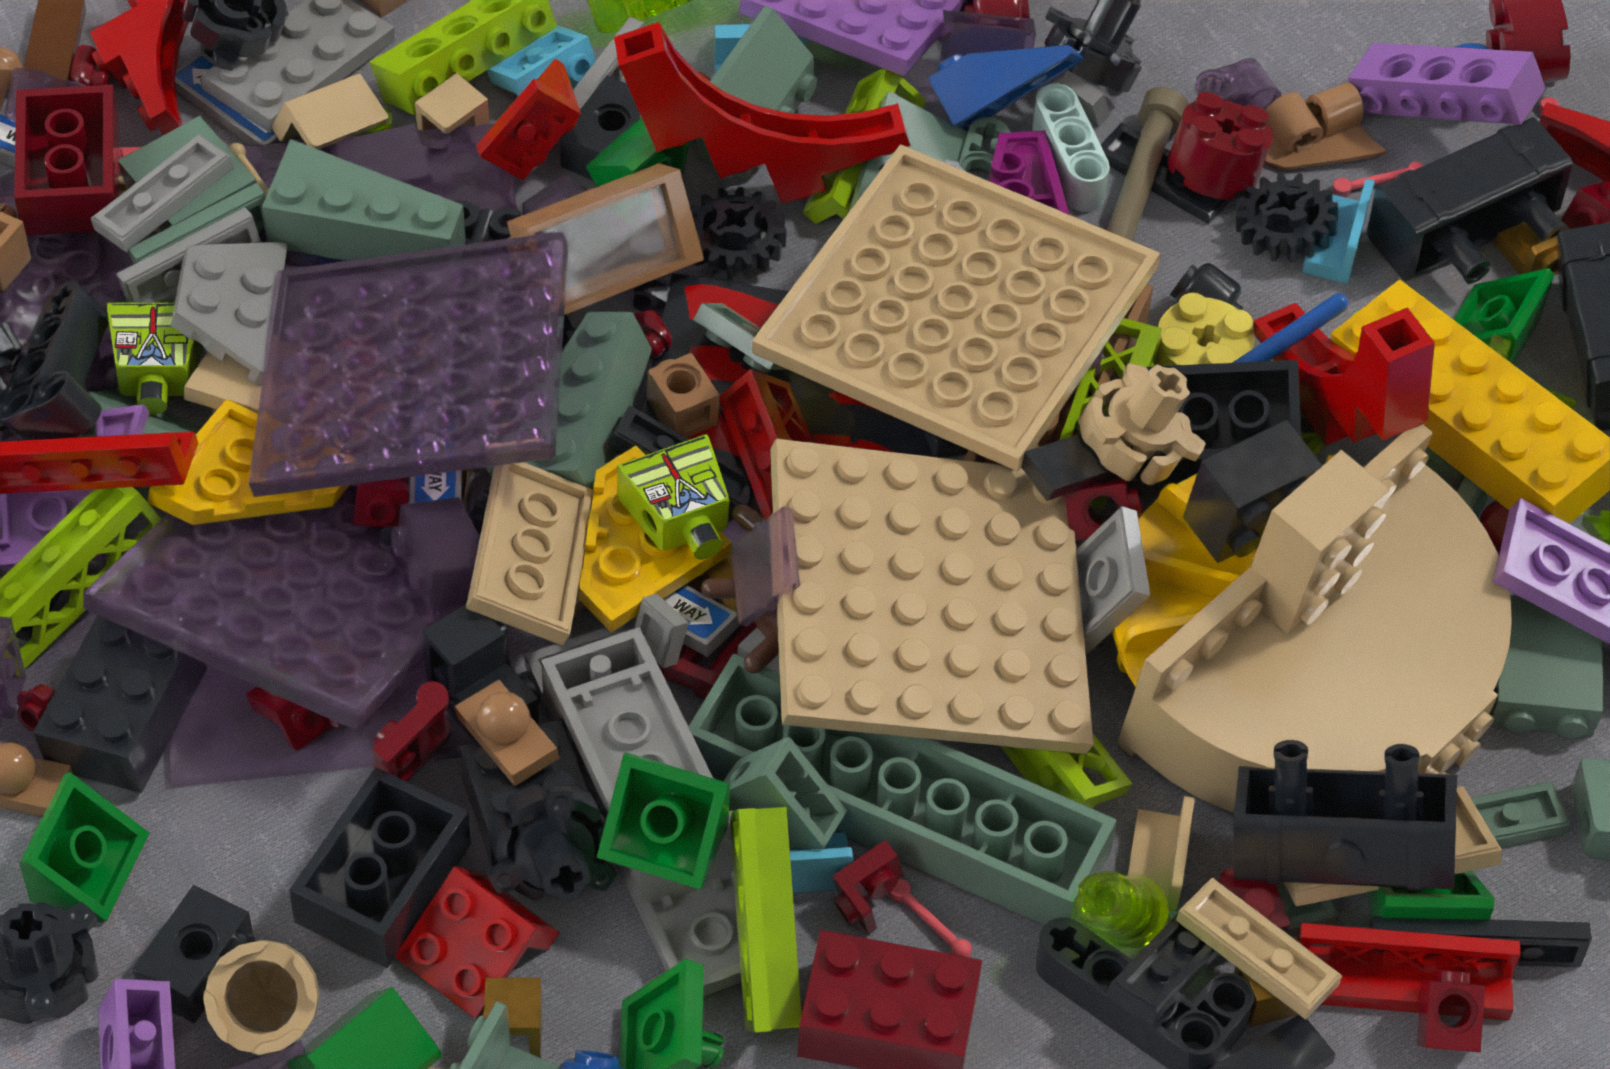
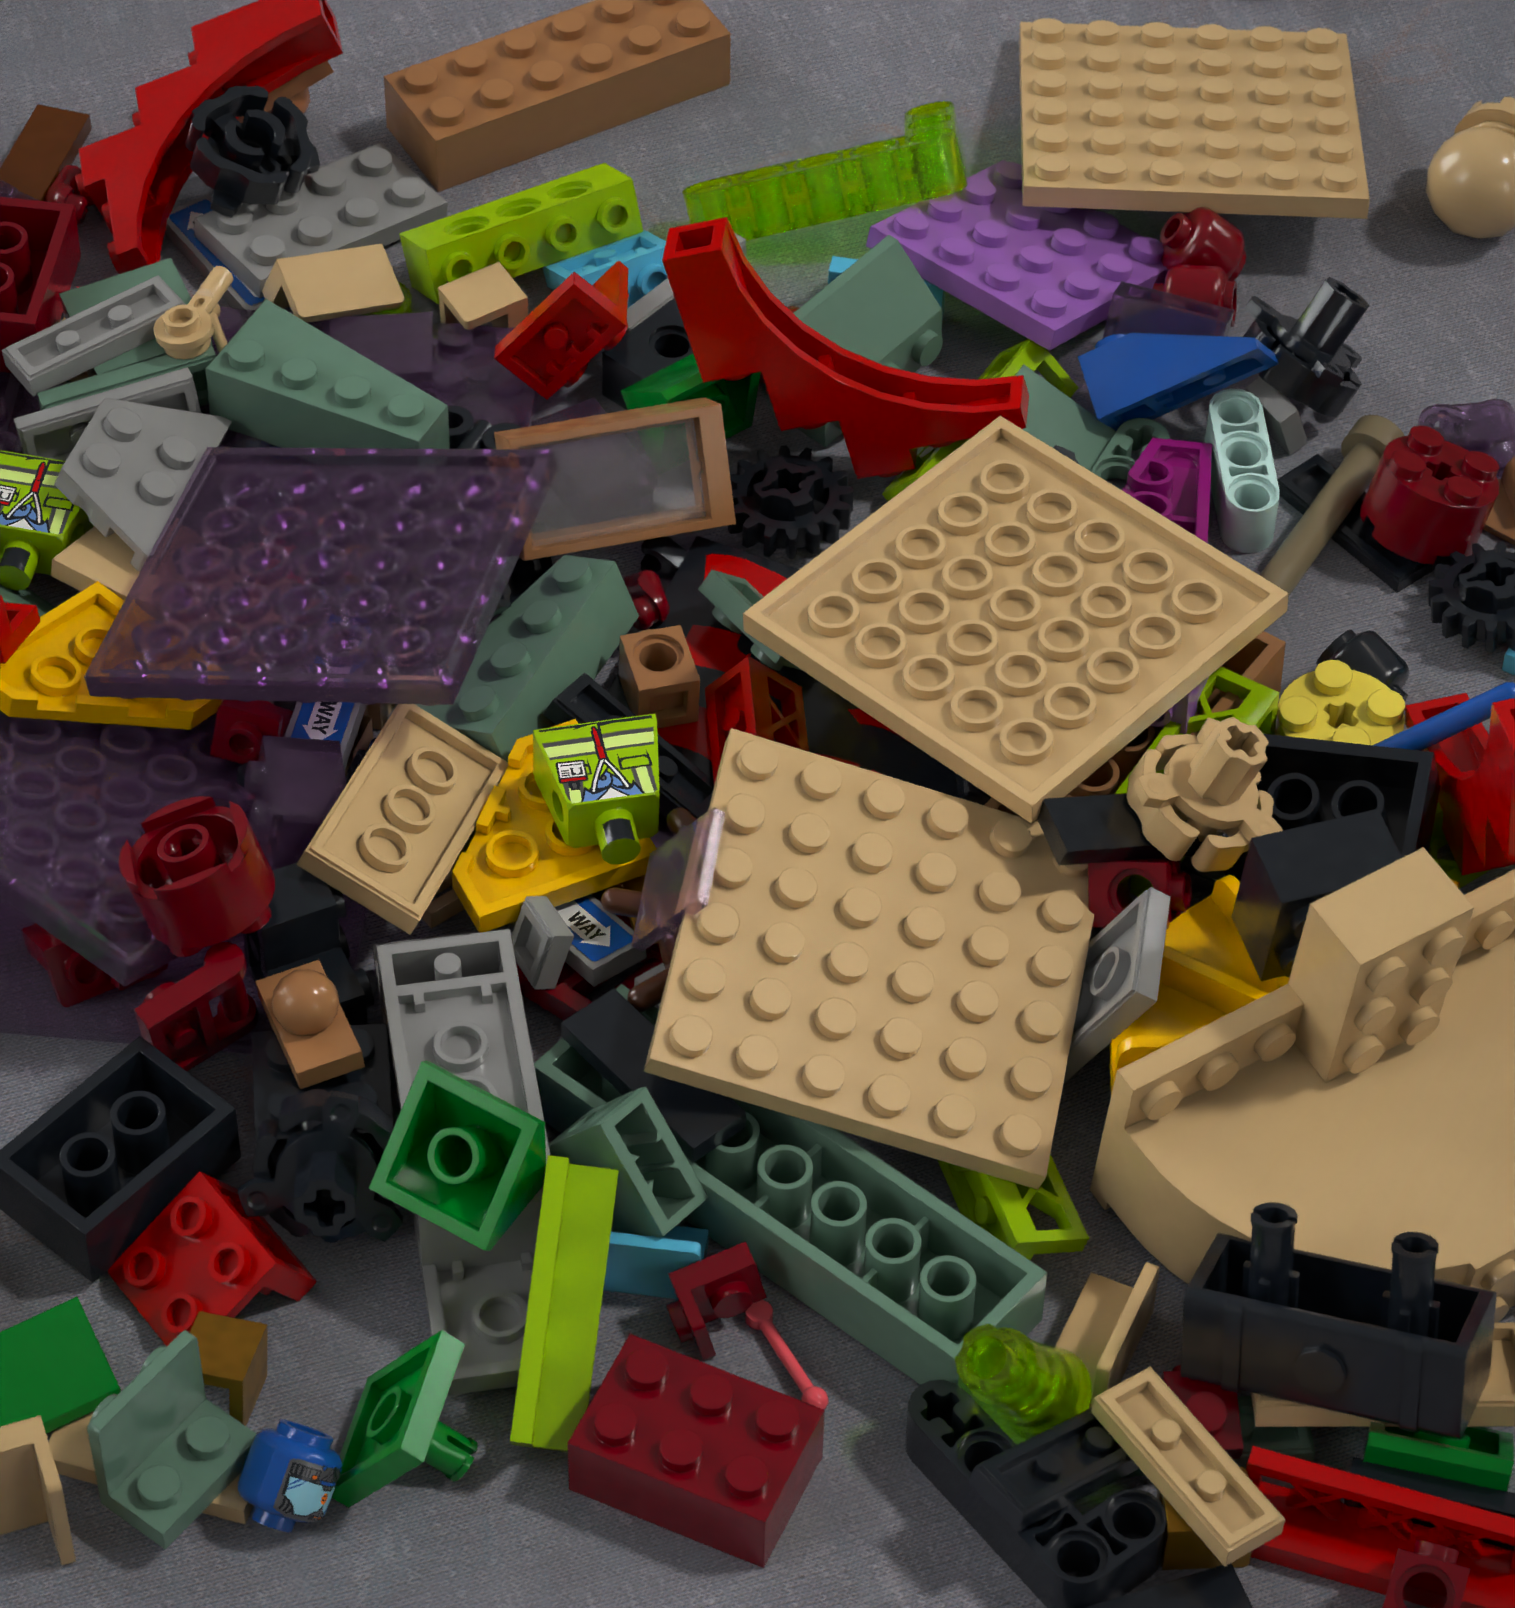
camera: 15 degrees right, 5 degrees down
(238, 175) = (188, 329): none -> tan plate
(398, 633) = (198, 875): none -> dark red brick
(756, 709) = (617, 1044): none -> black tile

